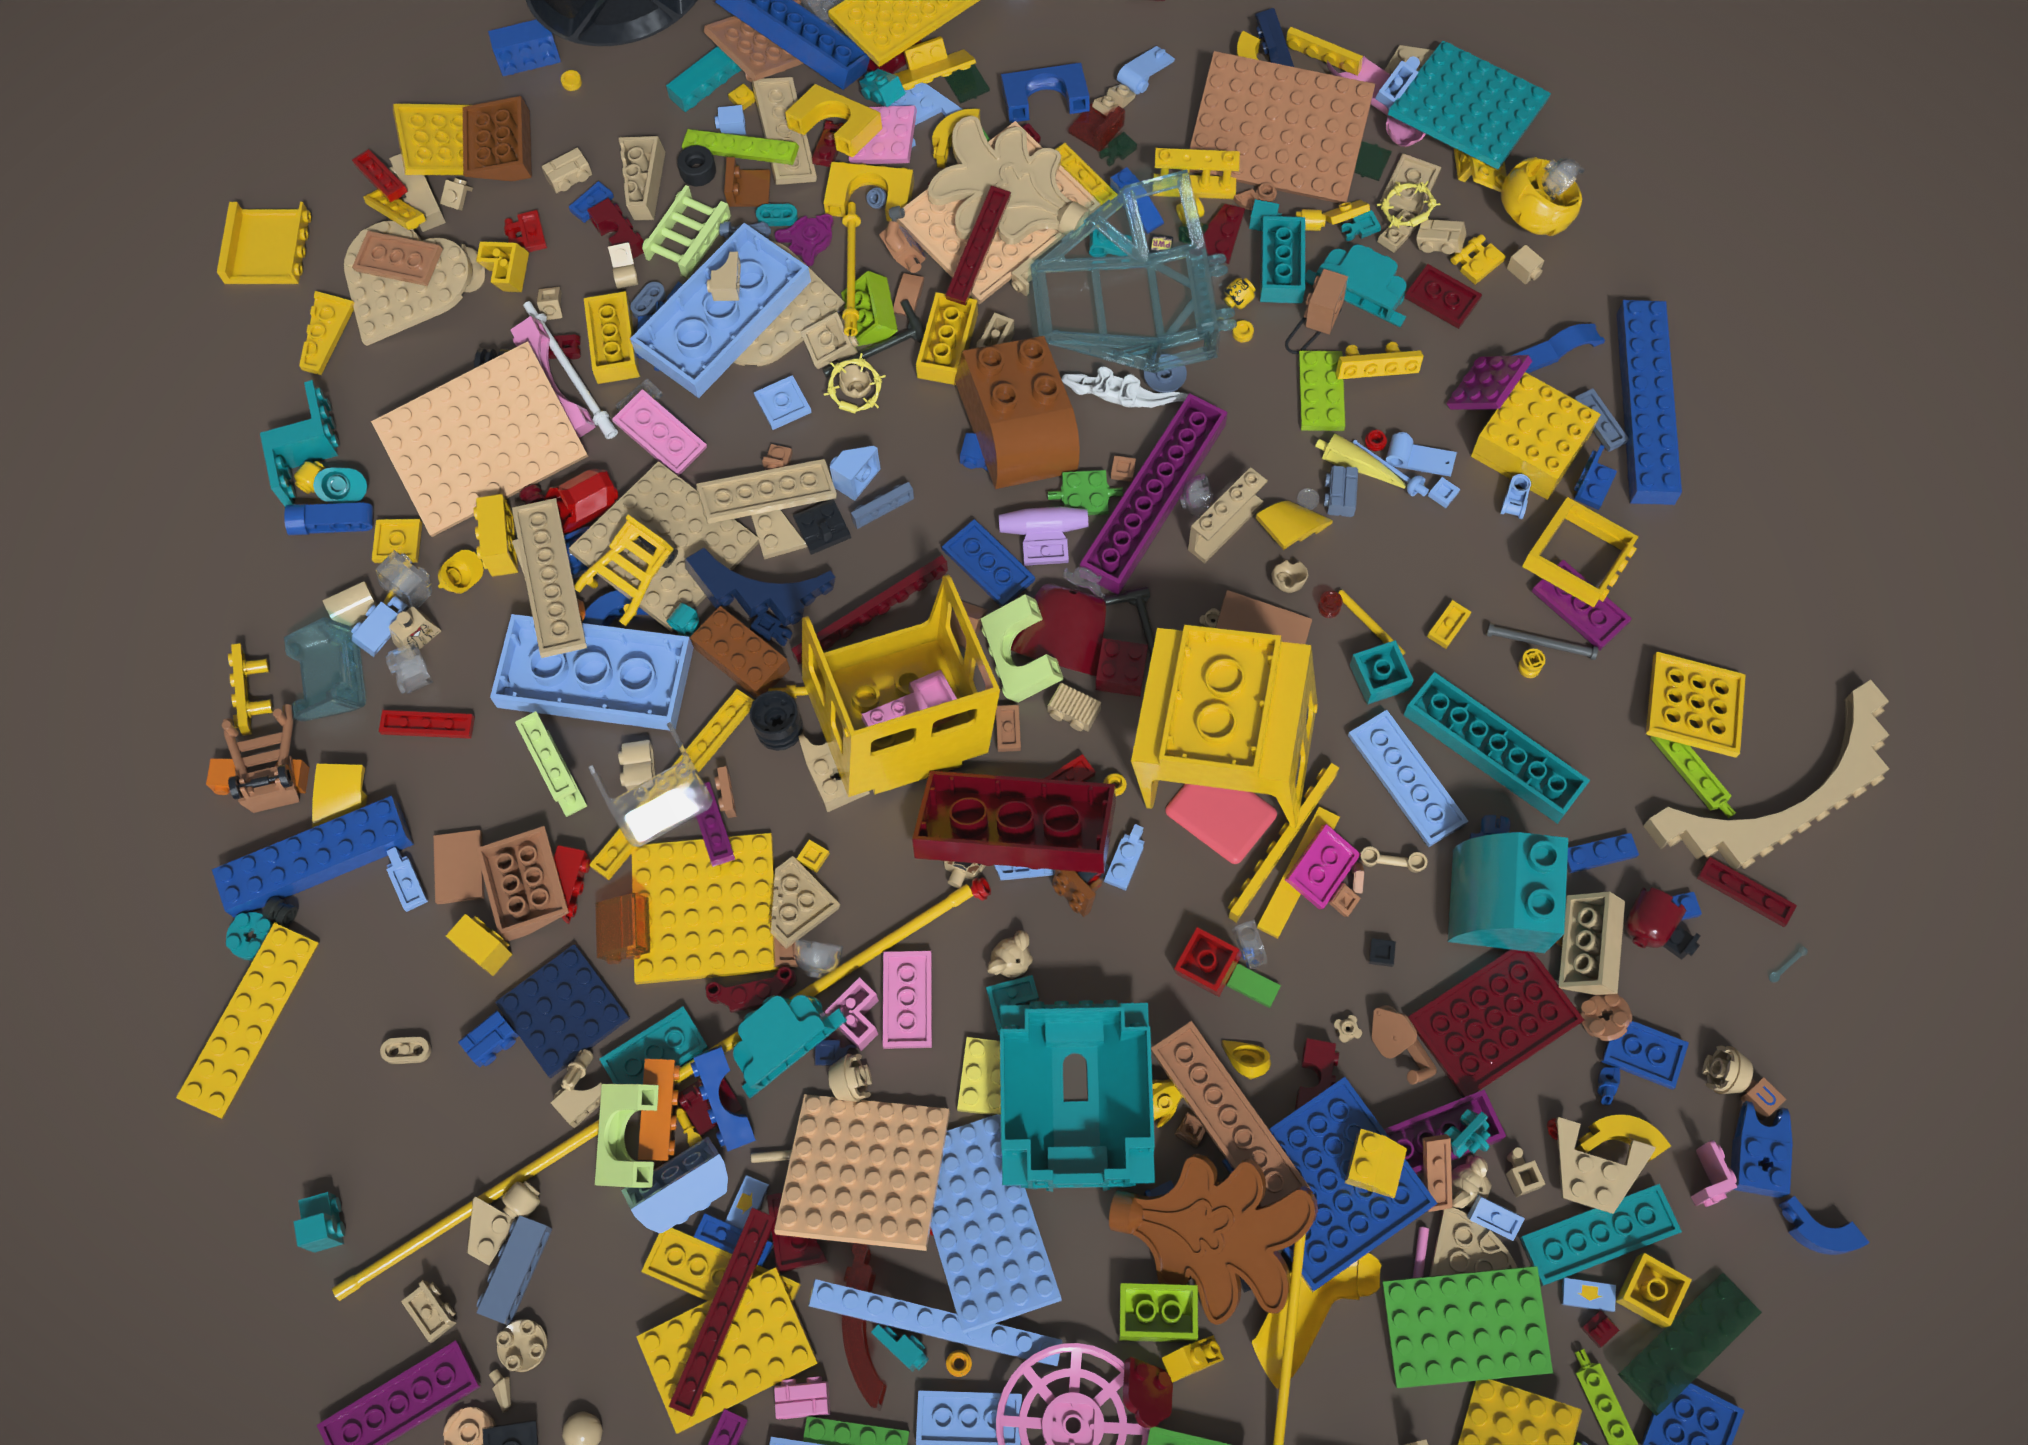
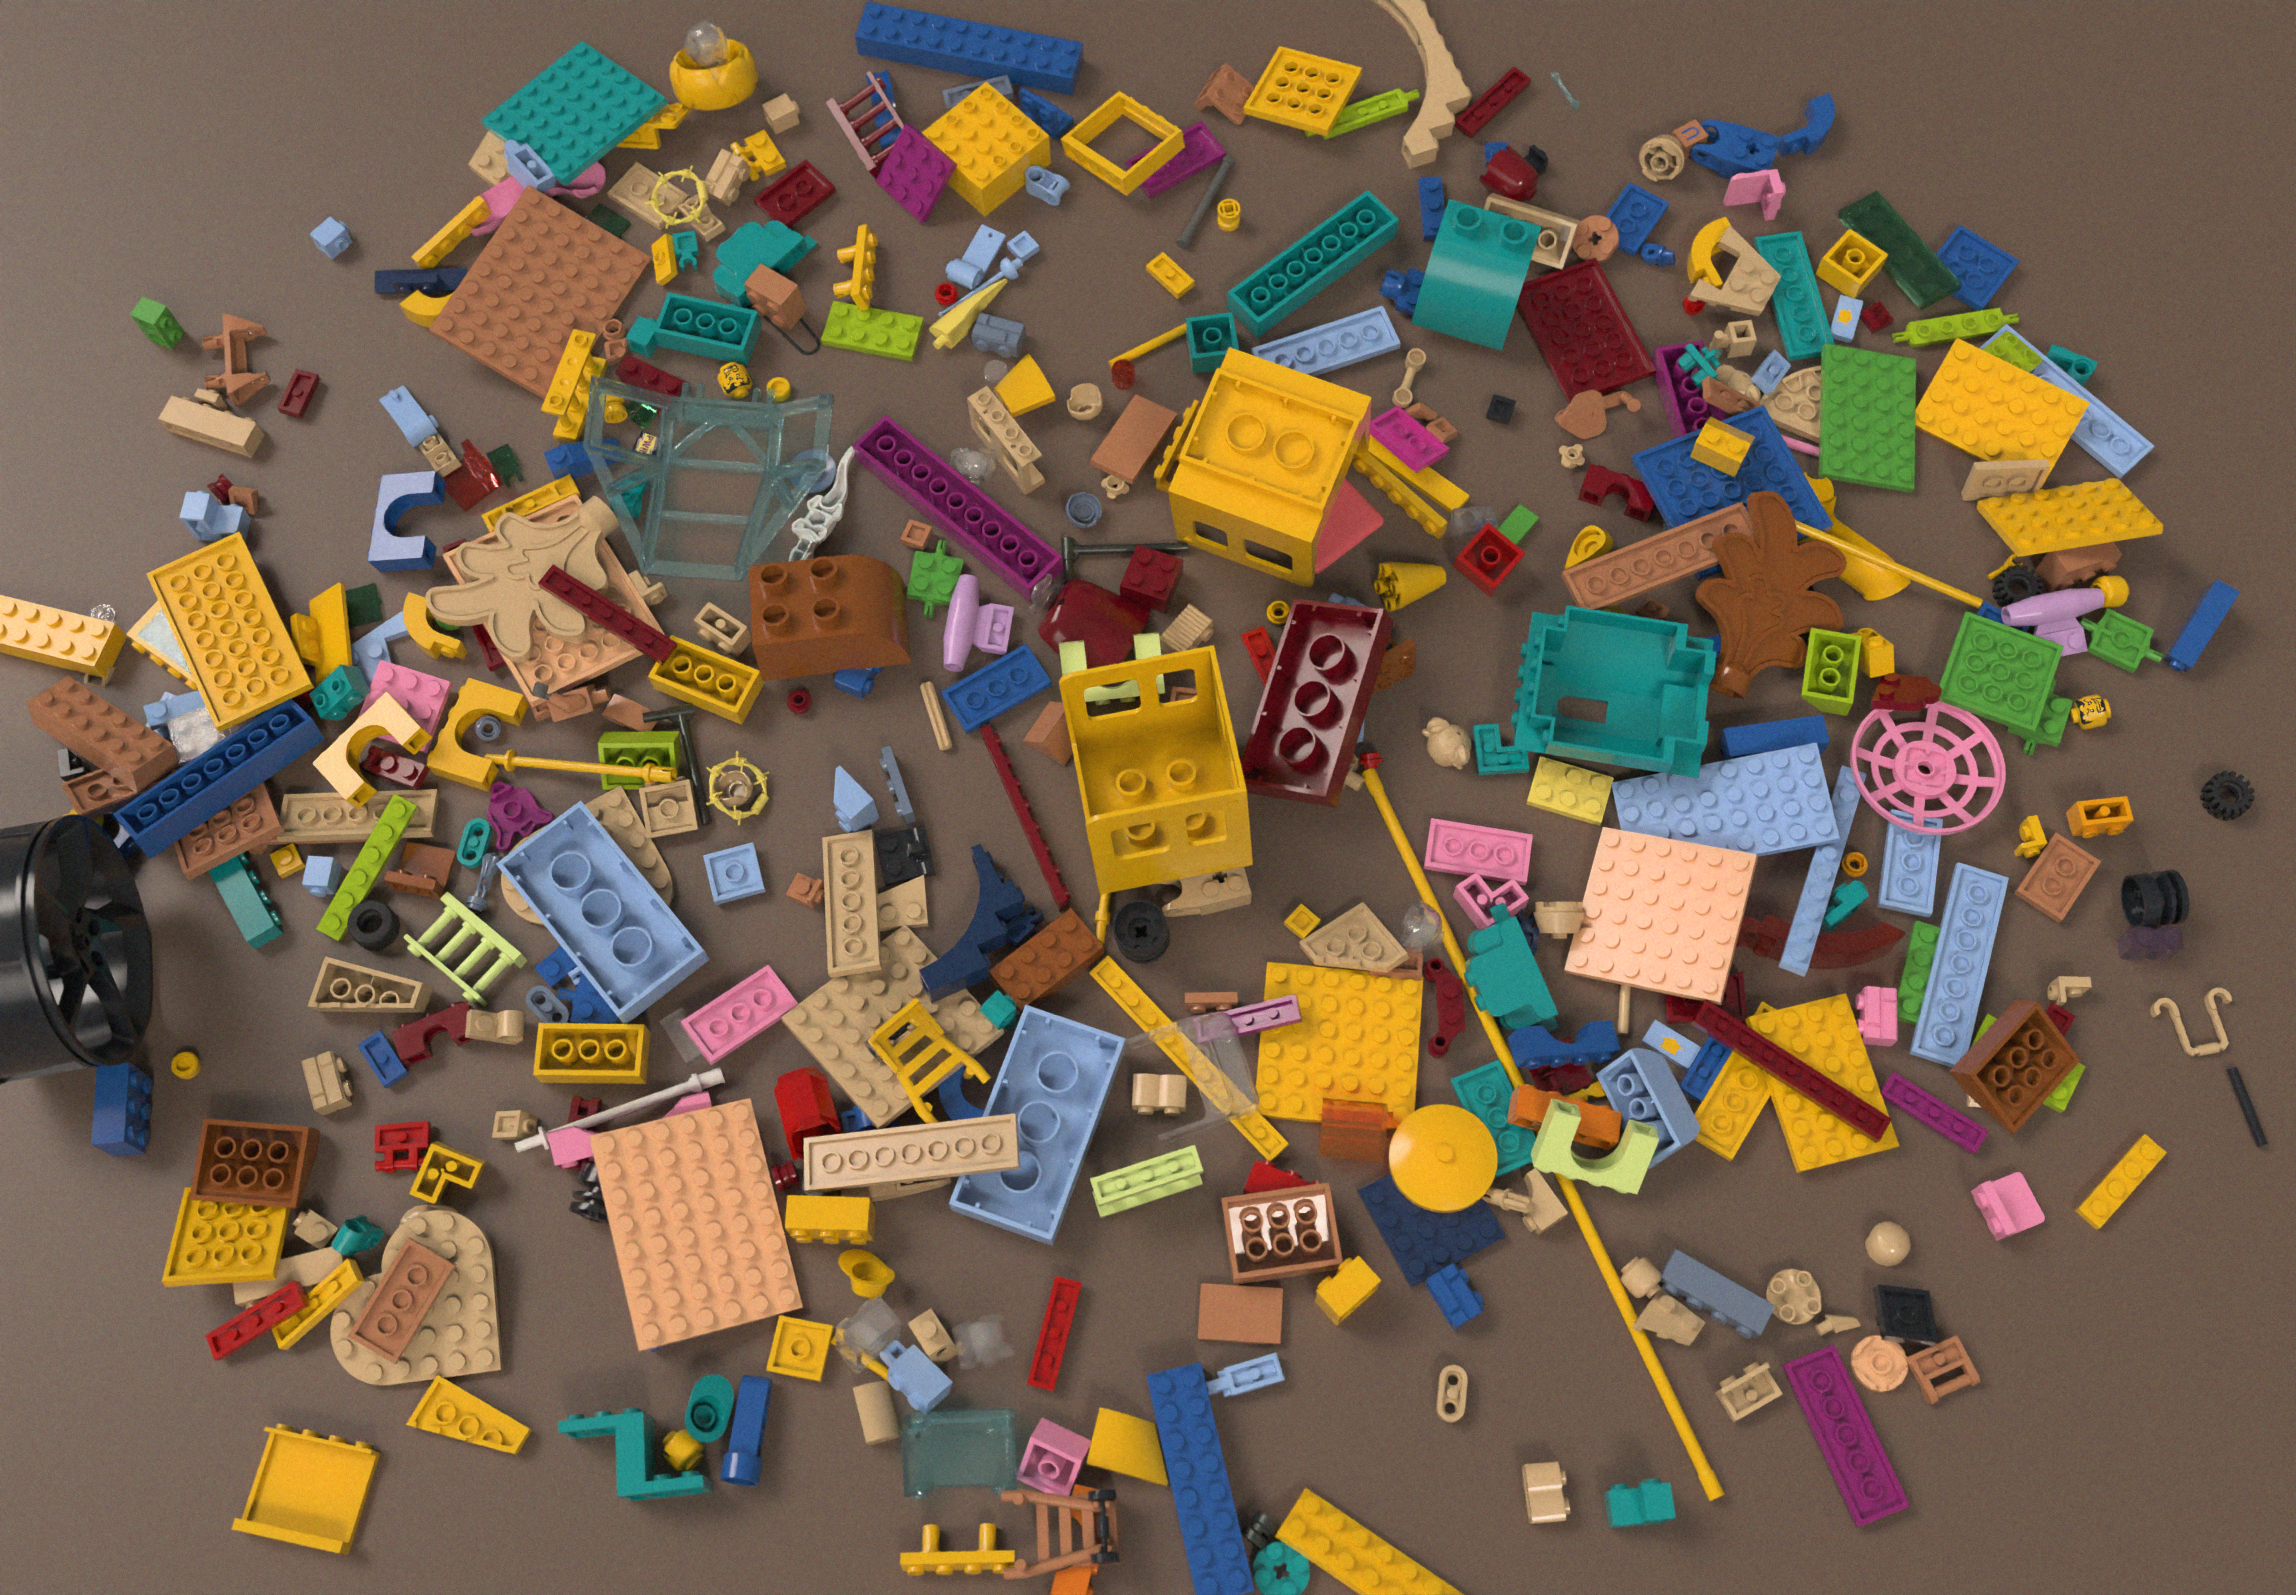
camera: 80 degrees left, 0 degrees up
(326, 741) = (1053, 1458): none -> bright pink slope
(327, 1140) = (1544, 1492): none -> tan brick
(449, 220) = (356, 1236): none -> teal piece
(607, 1008) = (1442, 1158): none -> yellow dish
(726, 280) = (579, 888): tan arch -> none
(924, 693) = (1164, 759): bright pink plate -> none
(945, 420) = (802, 707): none -> dark red plate
(954, 522) = (936, 716): none -> tan axle
(1072, 1266) = (1773, 736): none -> blue brick
(1167, 892) = (1407, 582): none -> yellow cone
(1177, 596) = (1083, 510): none -> sand blue hair
(1313, 219) = (660, 292): yellow brick -> none
(1526, 321) = (852, 127): none -> dark red fence
(1671, 635) = (1226, 92): none -> nougat bracket

